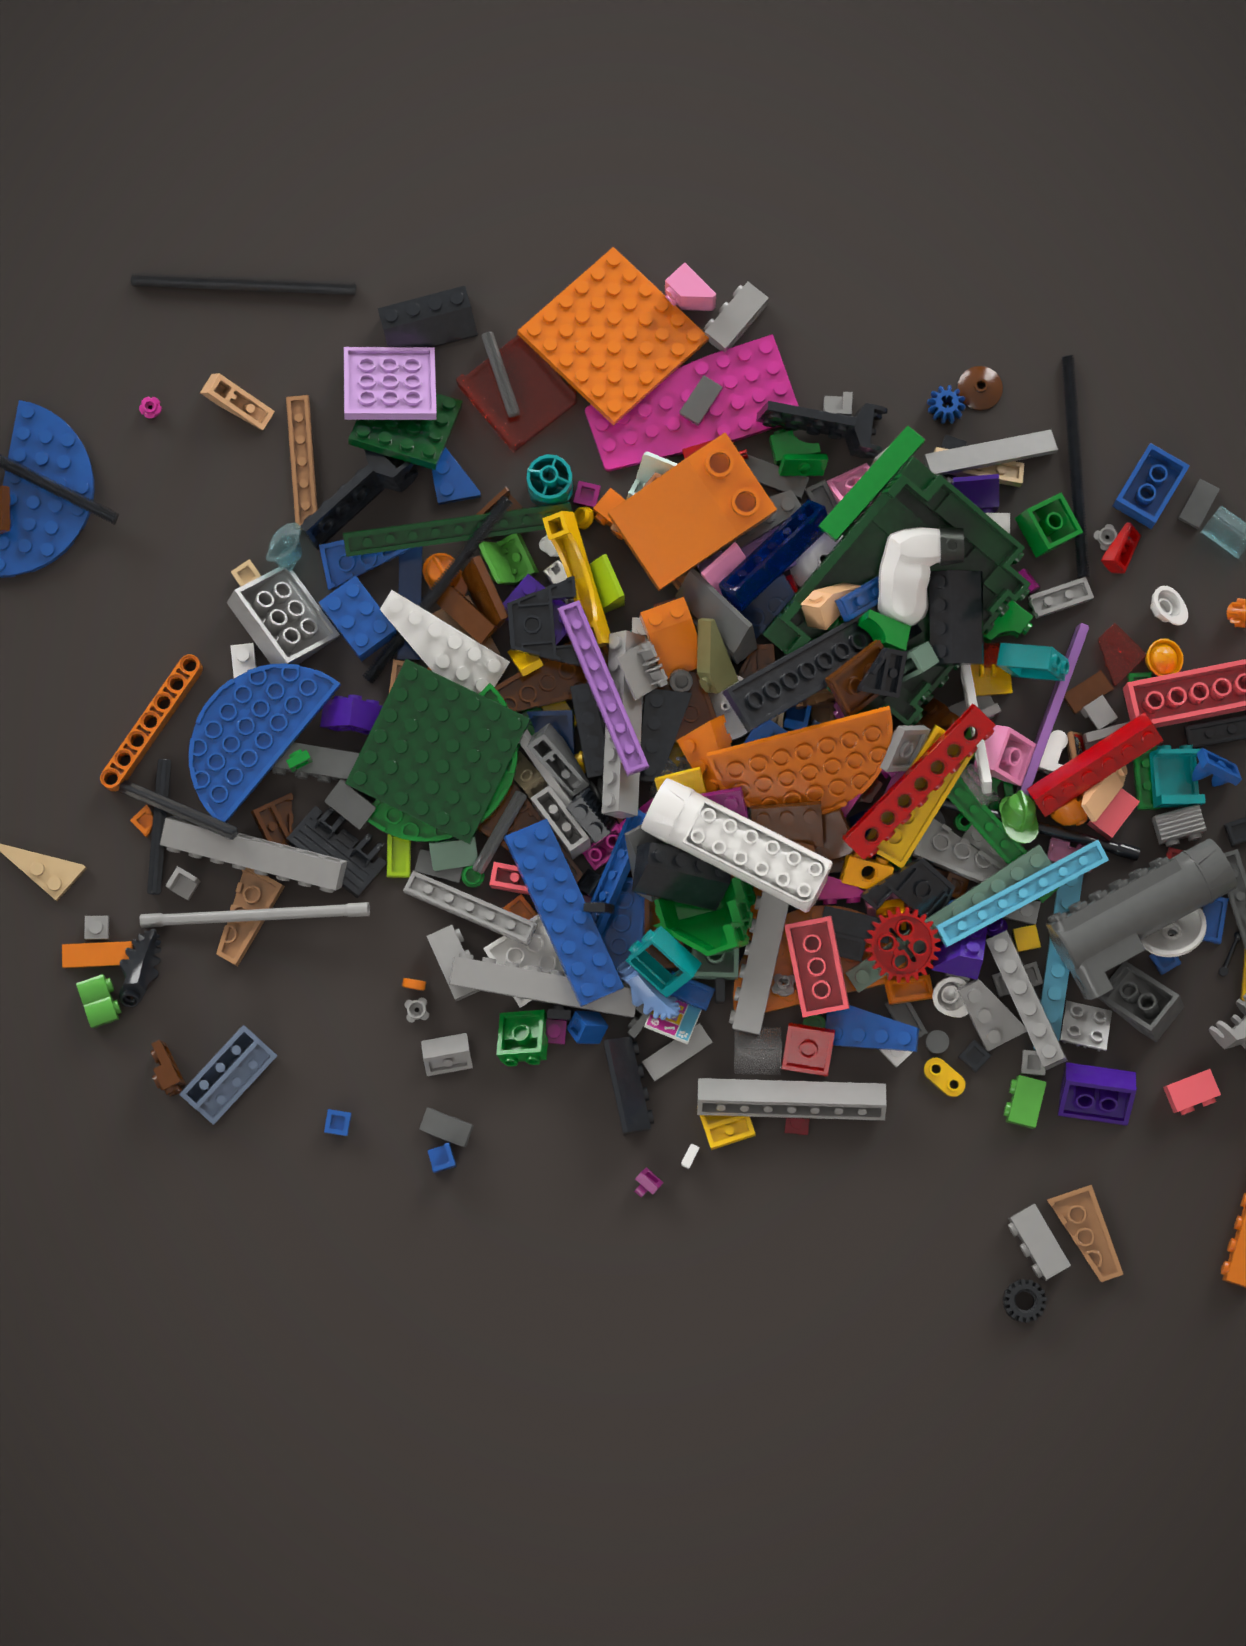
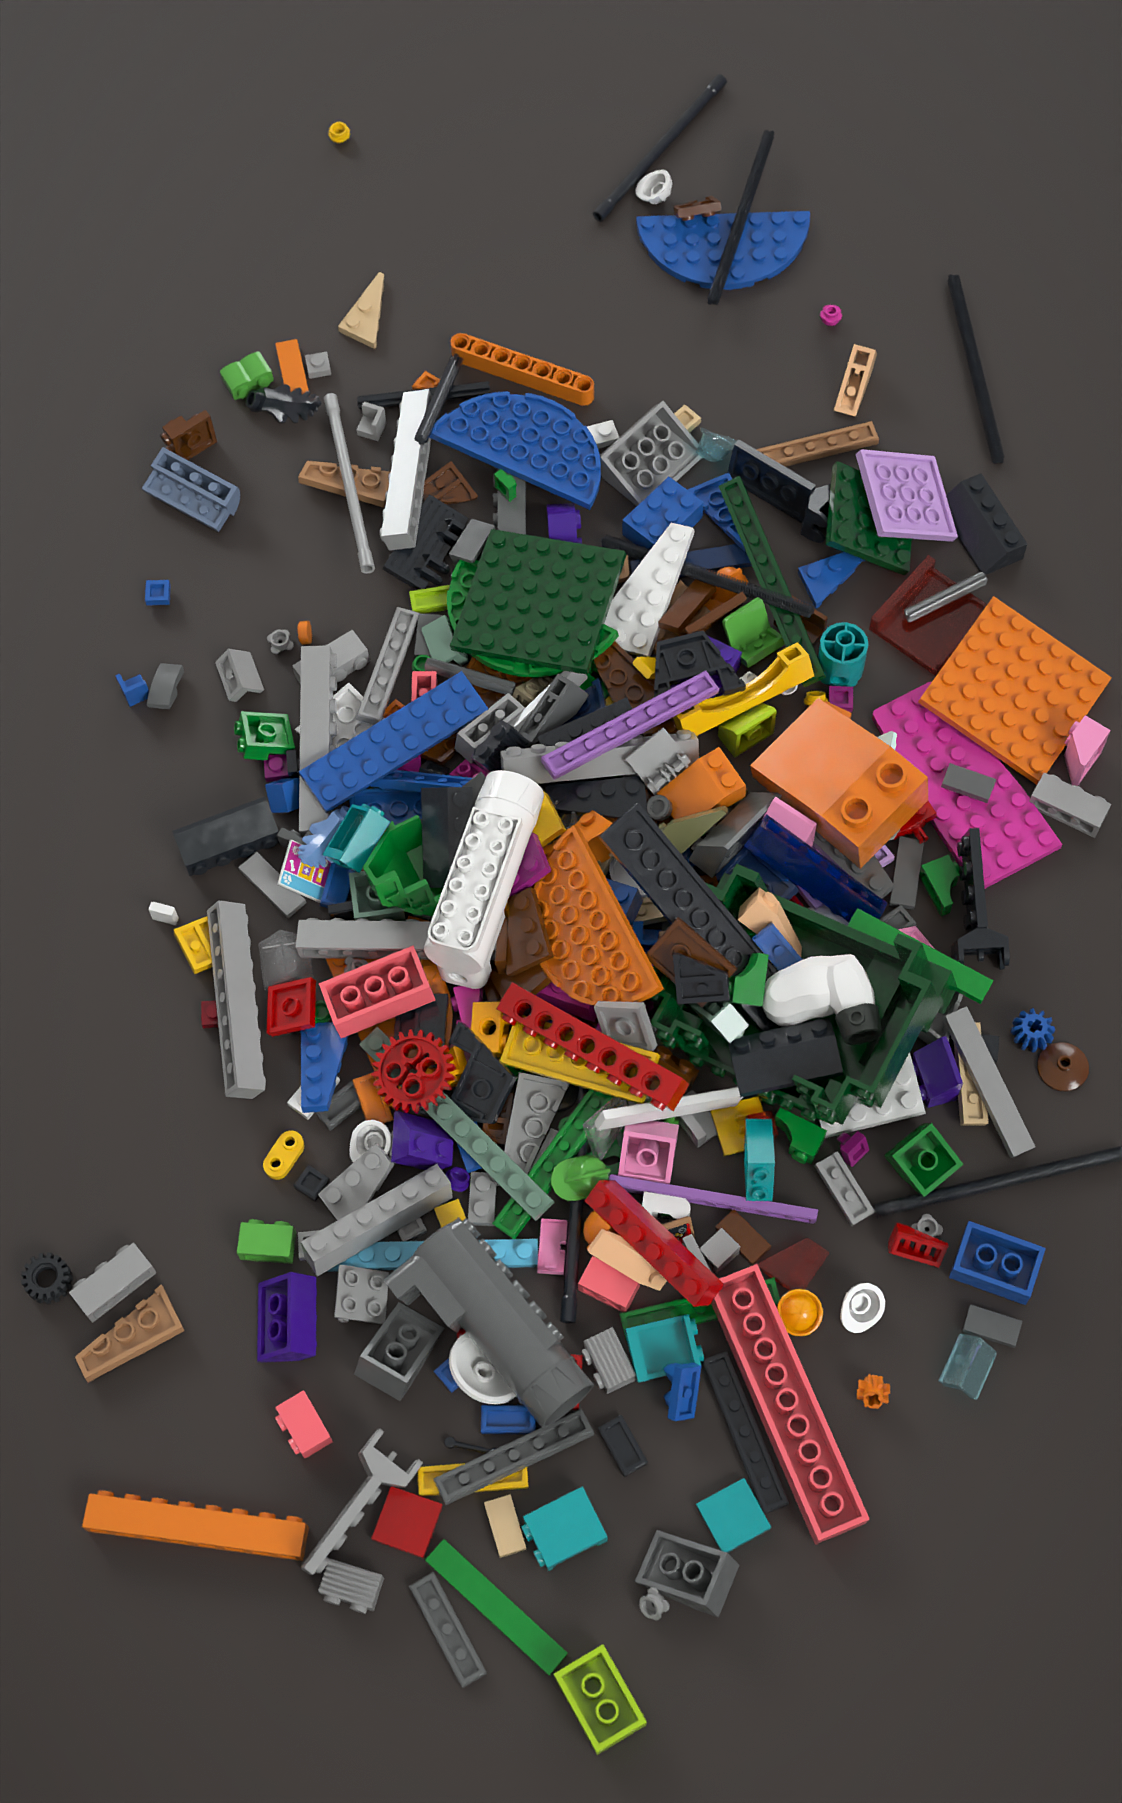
camera: 80 degrees right, 15 degrees down
(594, 907) = (403, 770): black tile -> none
(648, 1182) = (132, 878): magenta tile -> none
(803, 464) = (925, 894): green plate -> none
(839, 405) = (1001, 921): light grey panel -> none
(937, 1041) = (321, 1141): dark grey tile -> none
(1021, 893) = (494, 1189): medium azure plate -> none

